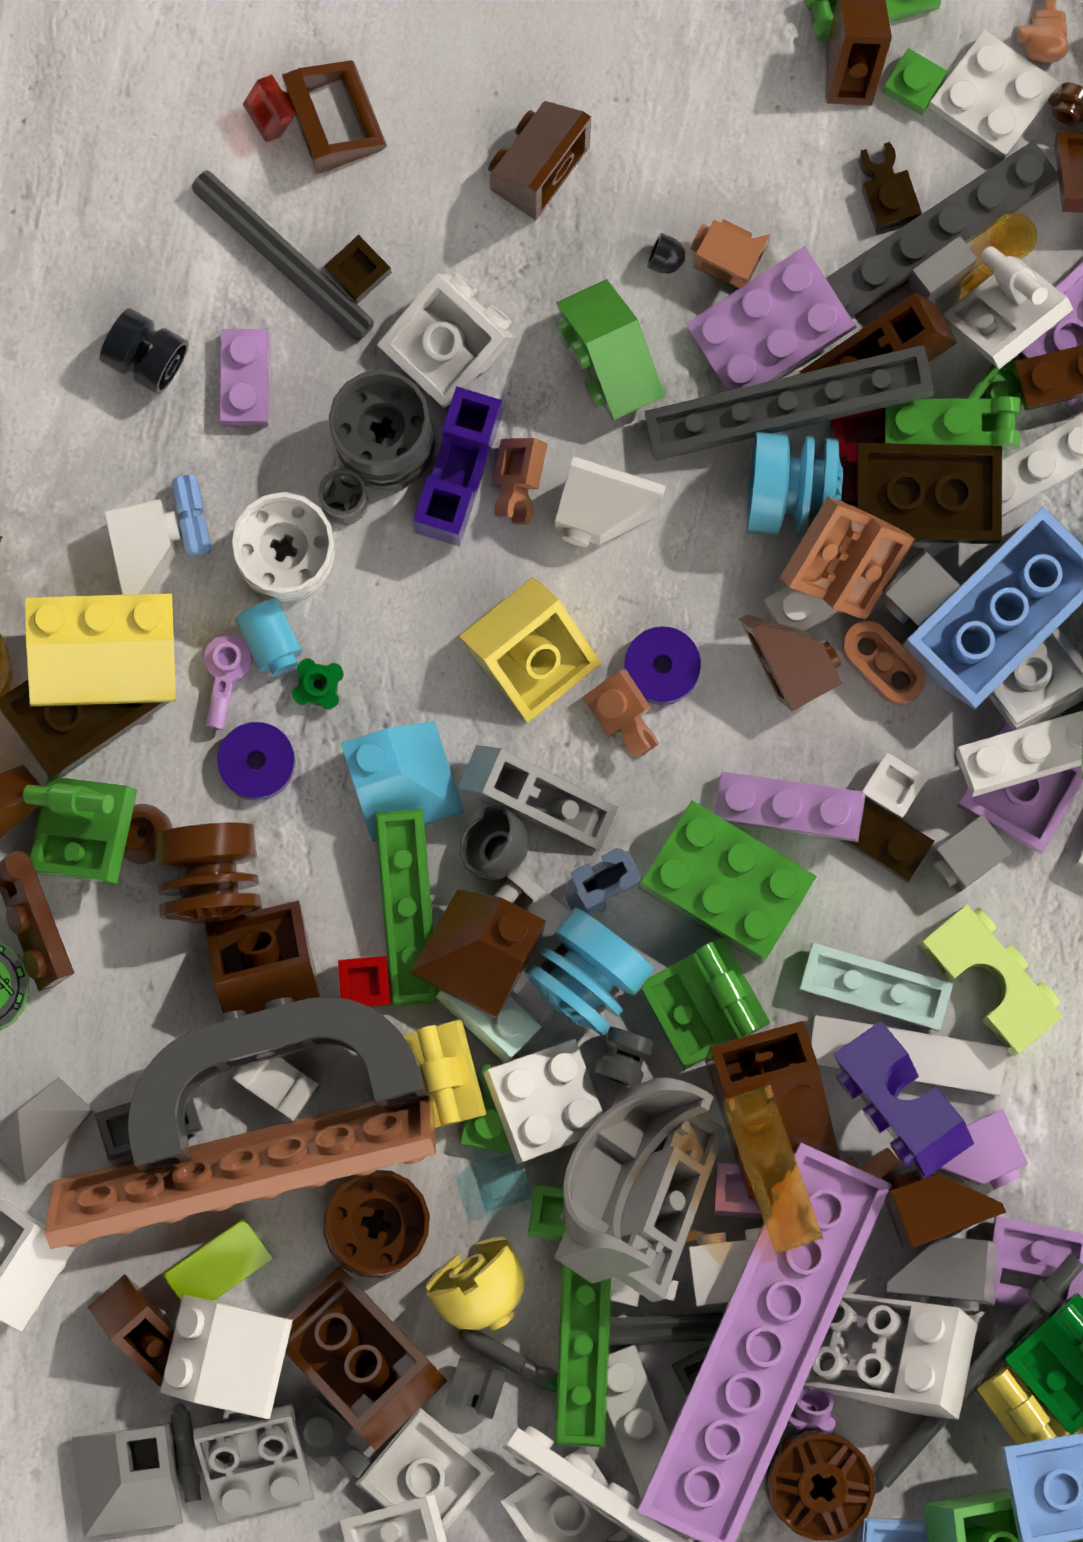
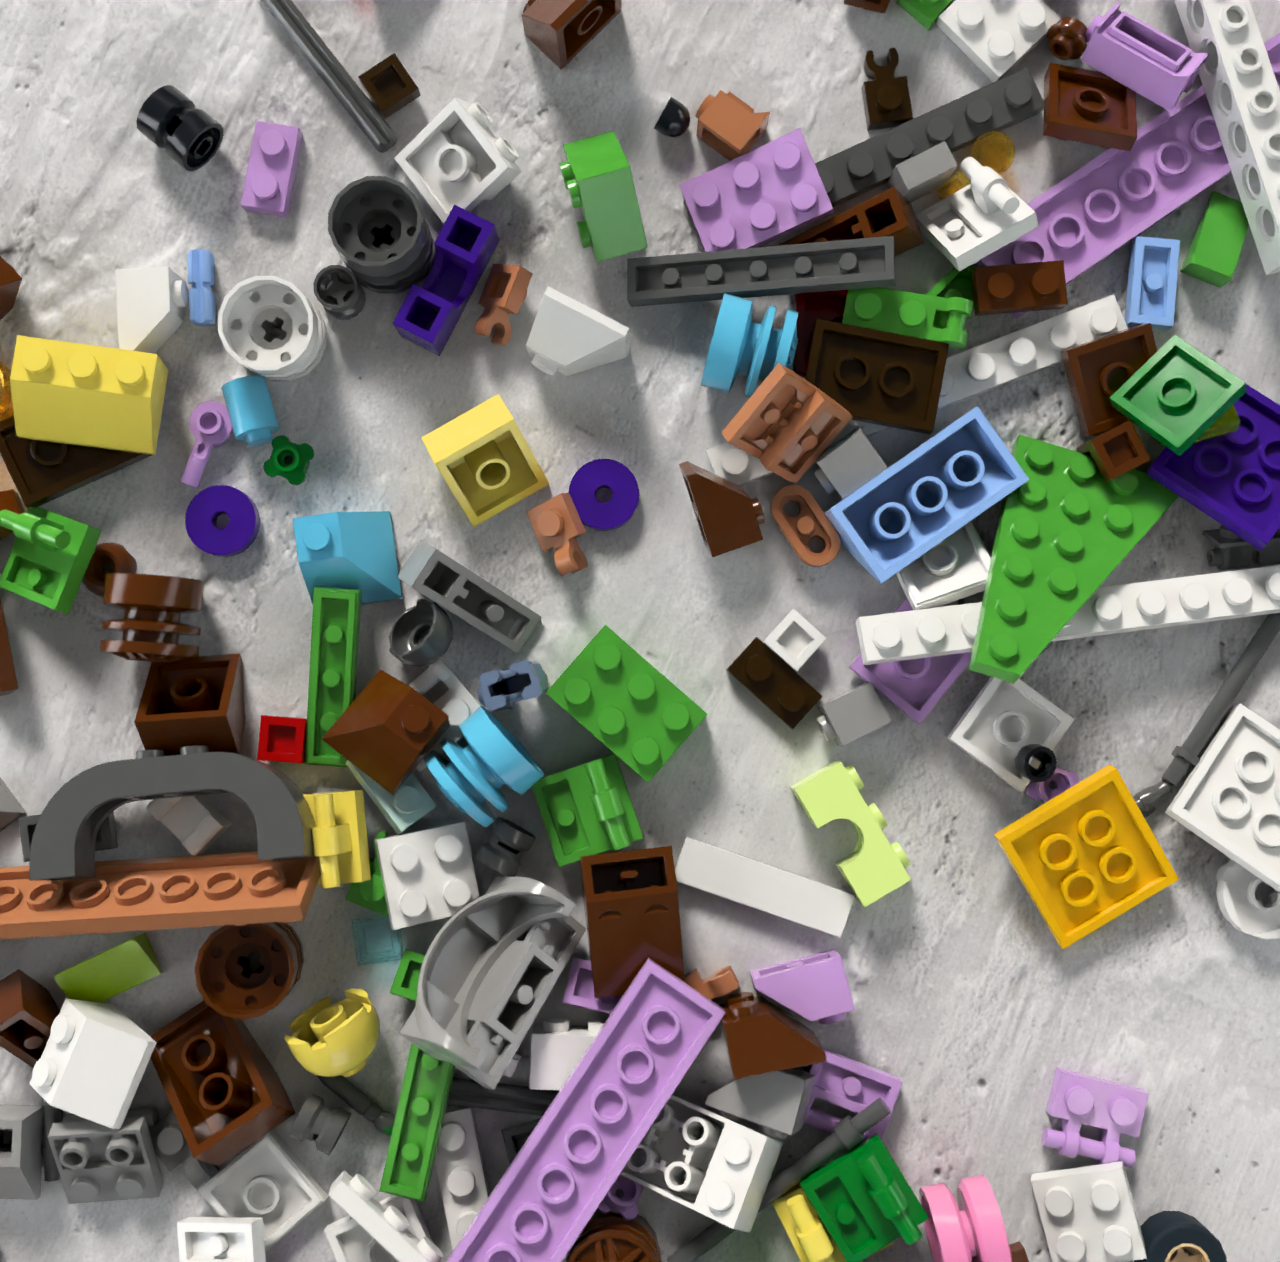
camera: 10 degrees right, 5 degrees up
(772, 1169) = (615, 982): clear yellow slope -> none
(790, 806) = (696, 643): lavender plate -> none
(875, 987) = (745, 821): light aqua plate -> none
(924, 1128) = (765, 970): dark purple arch -> none

